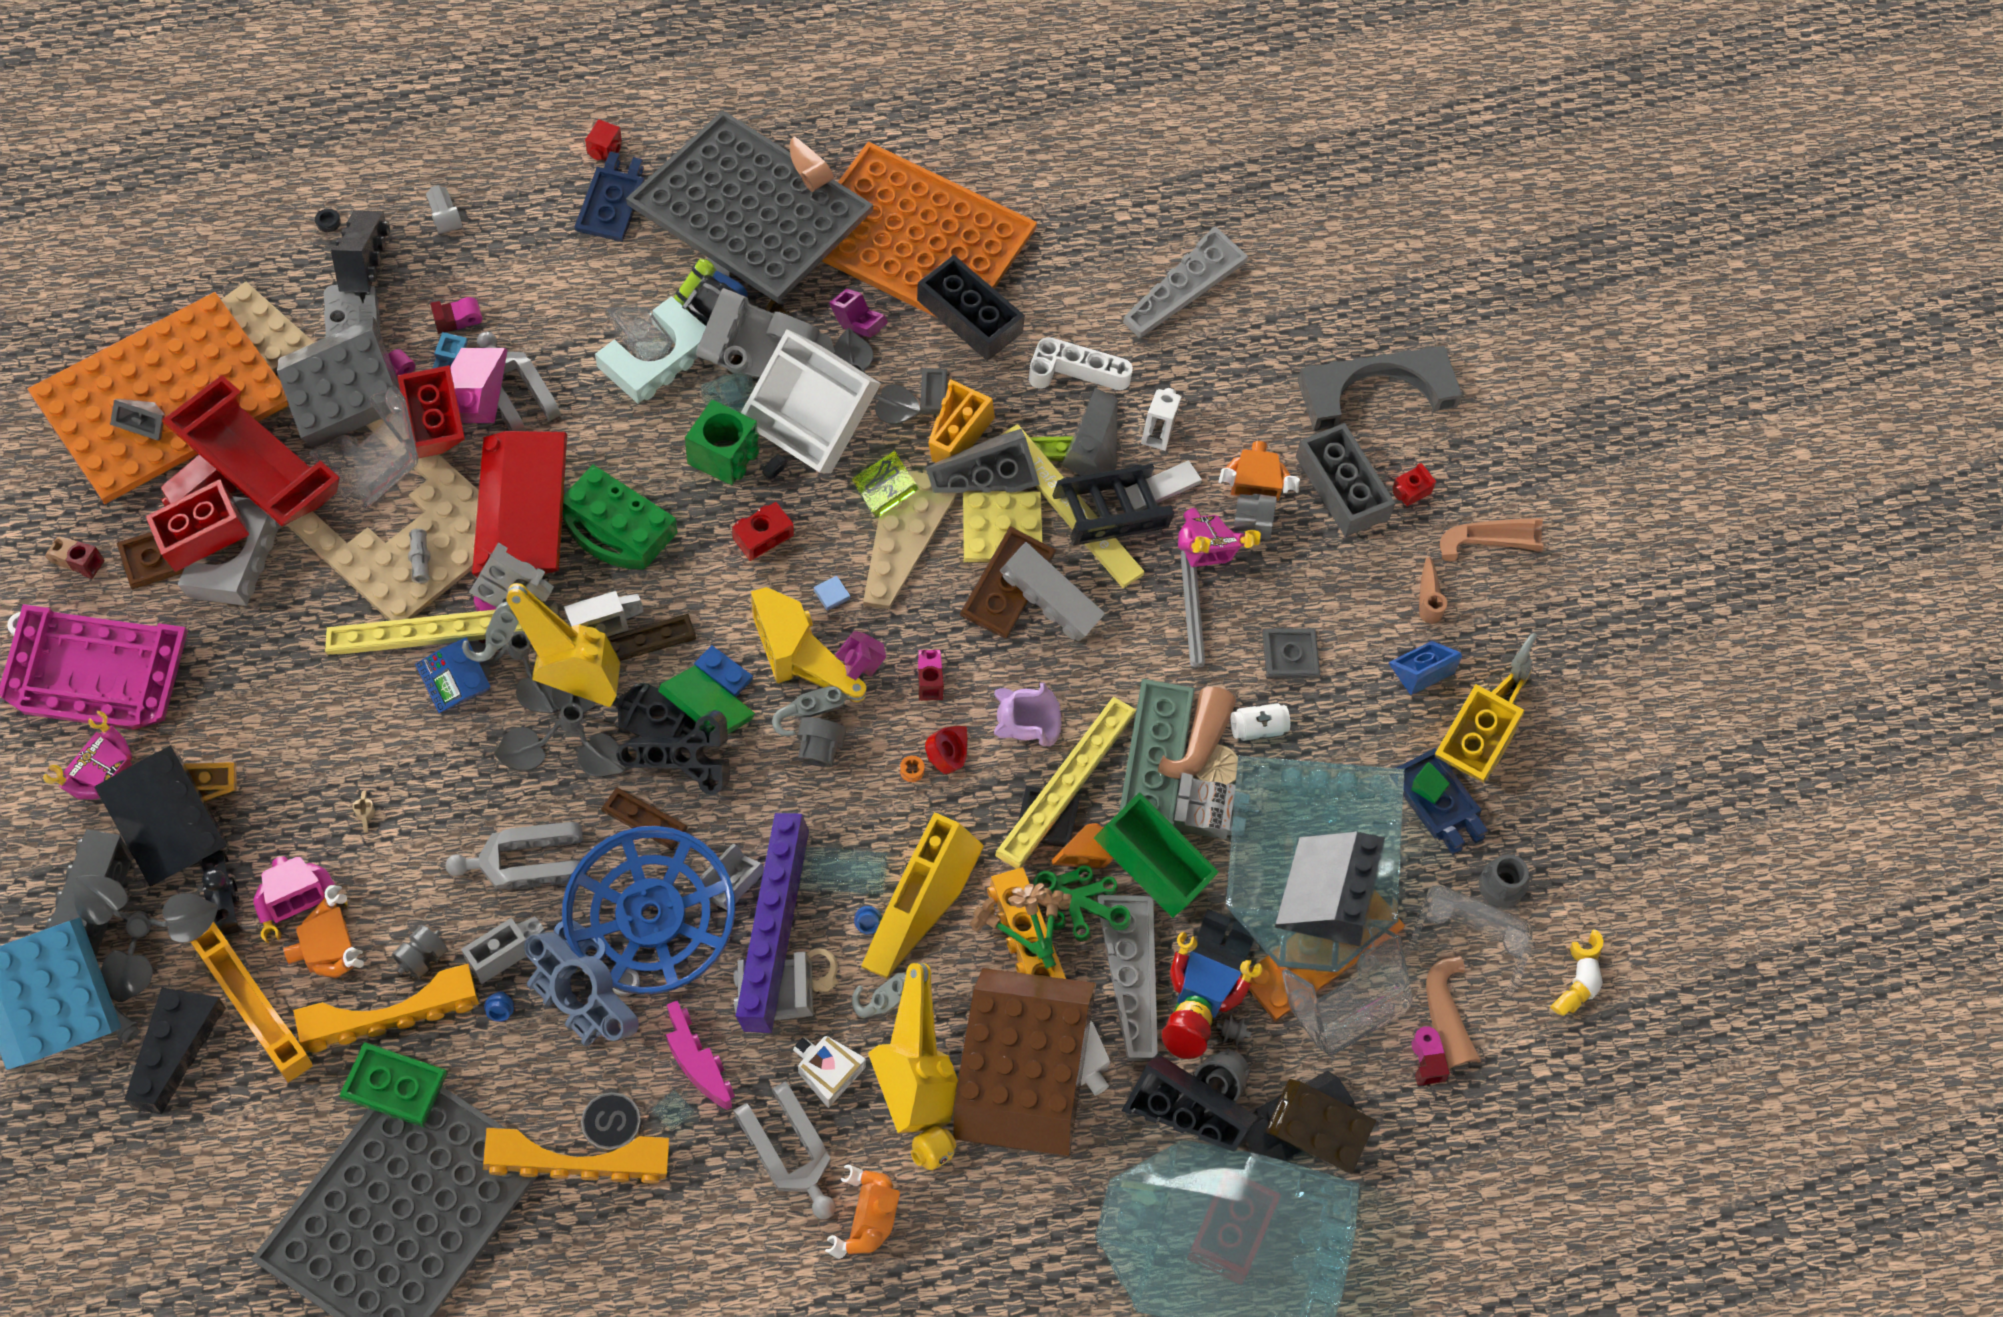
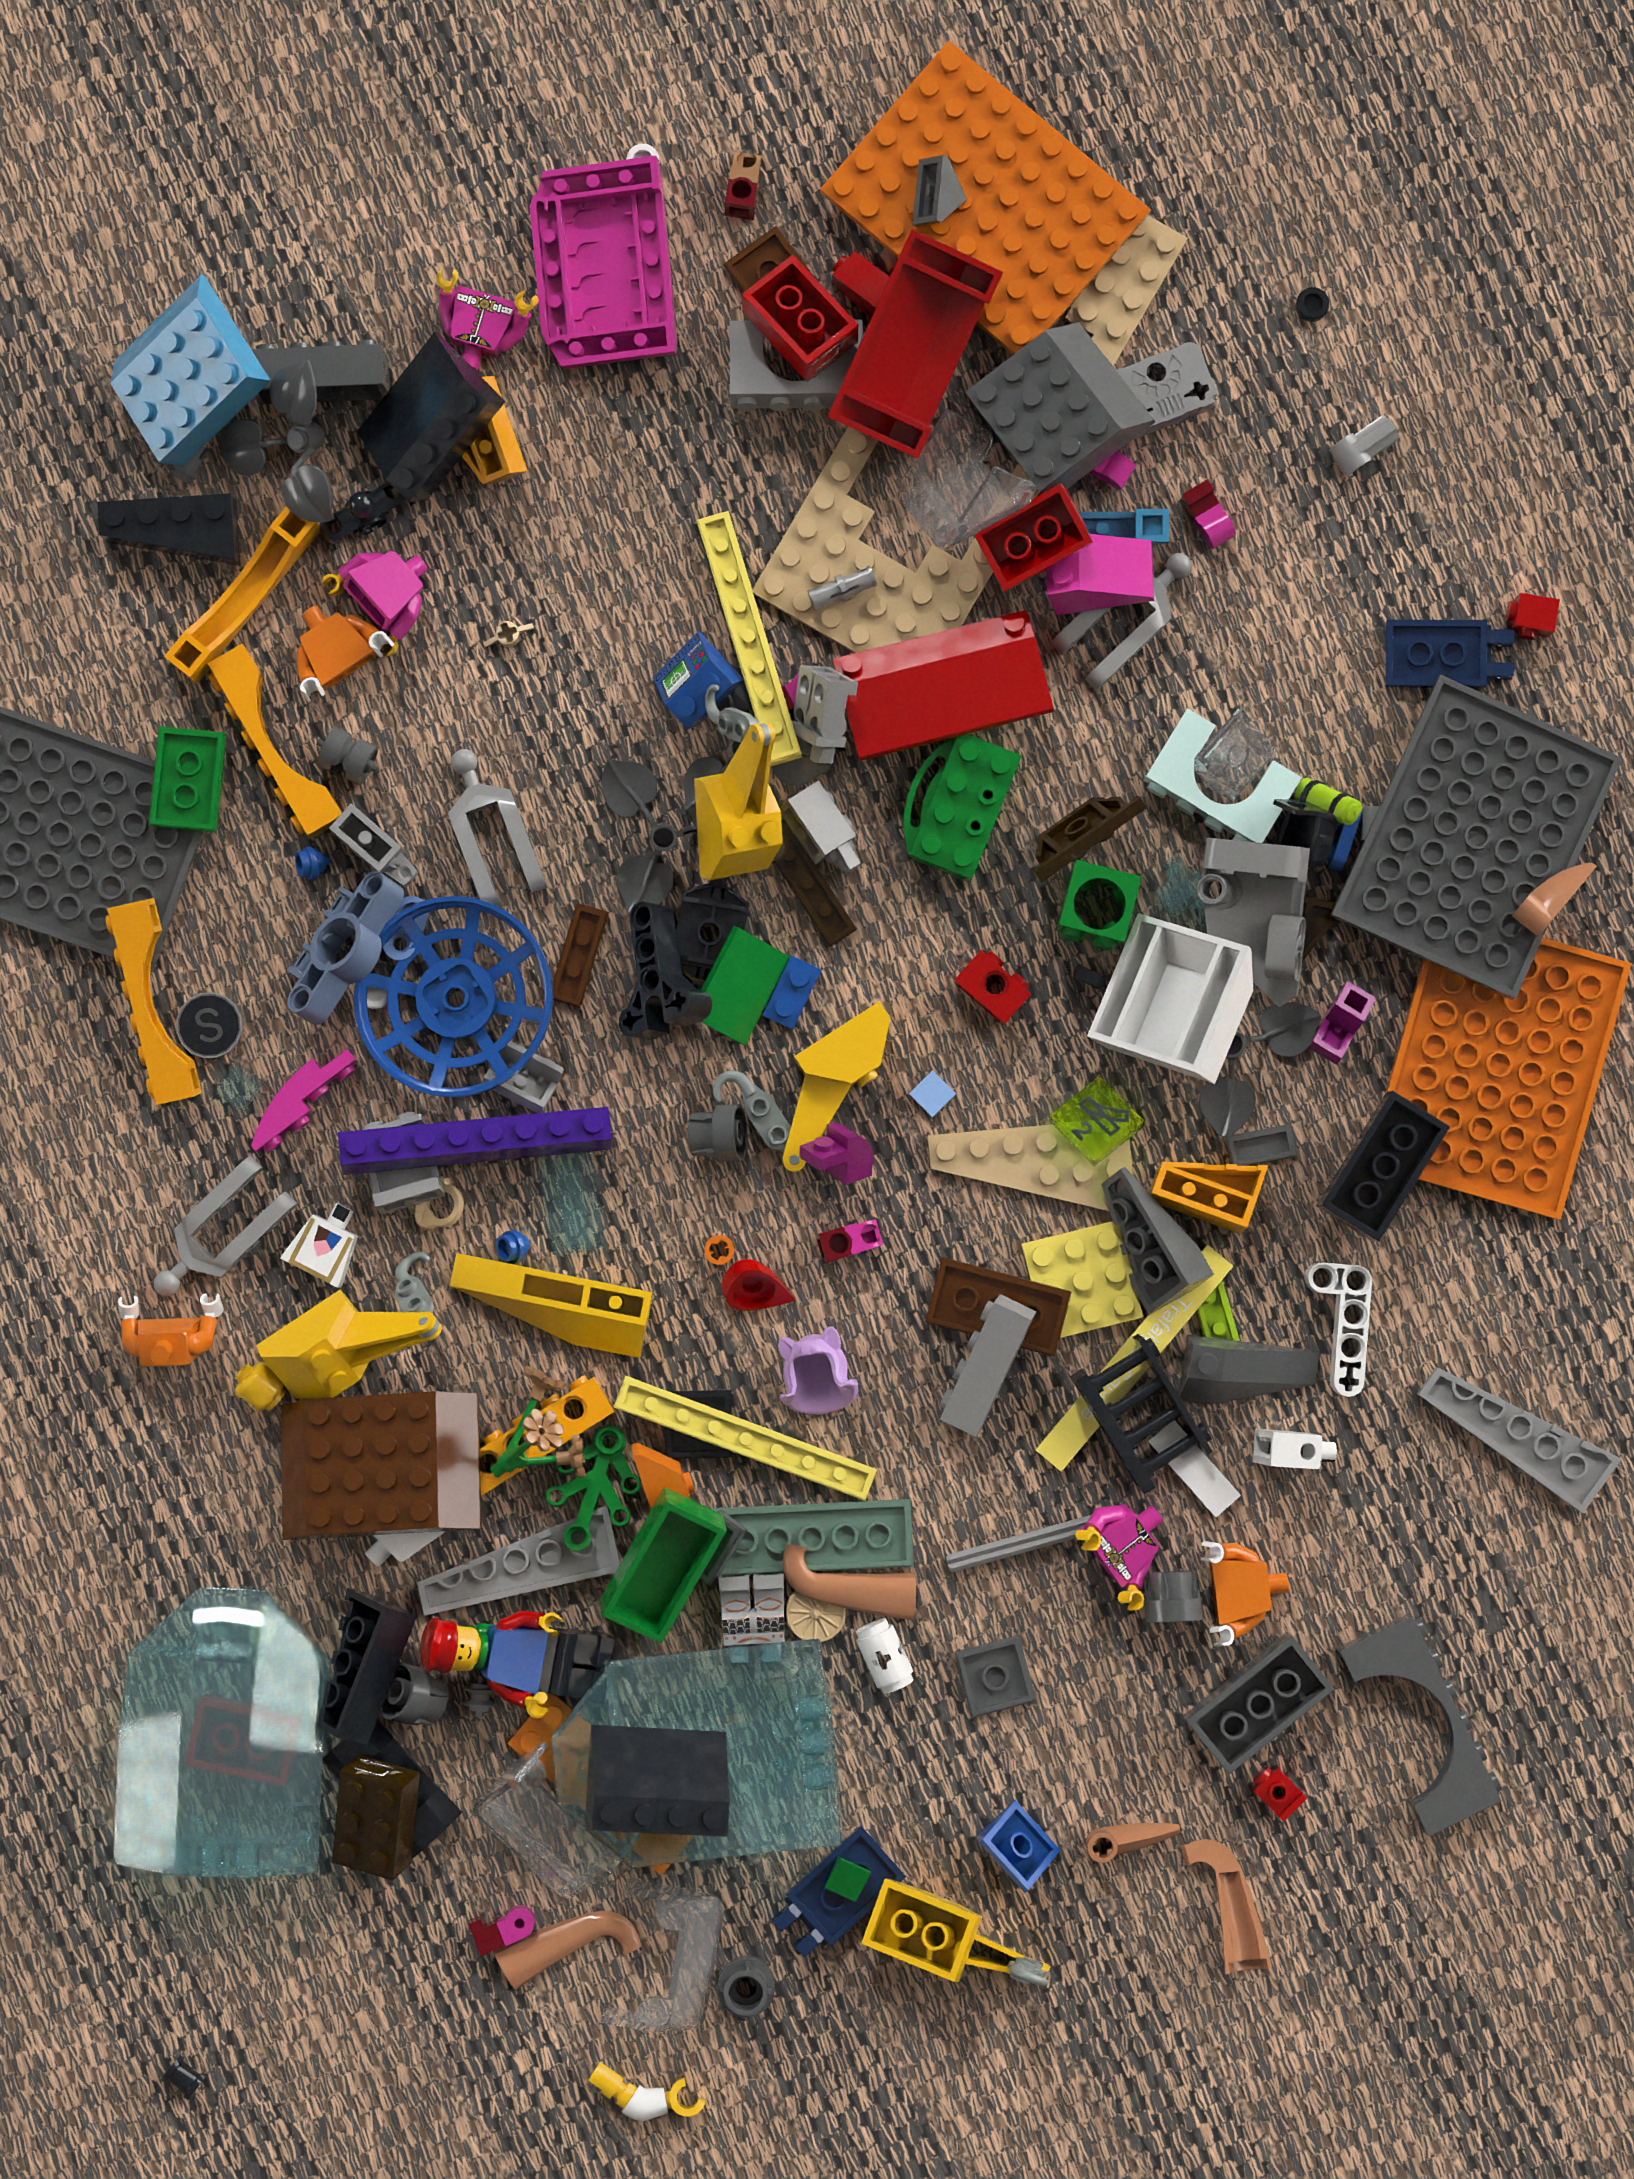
camera: 80 degrees right, 25 degrees up
(360, 250) = (1261, 366): black wedge -> none
(663, 439) = (1081, 830): none -> dark brown wing

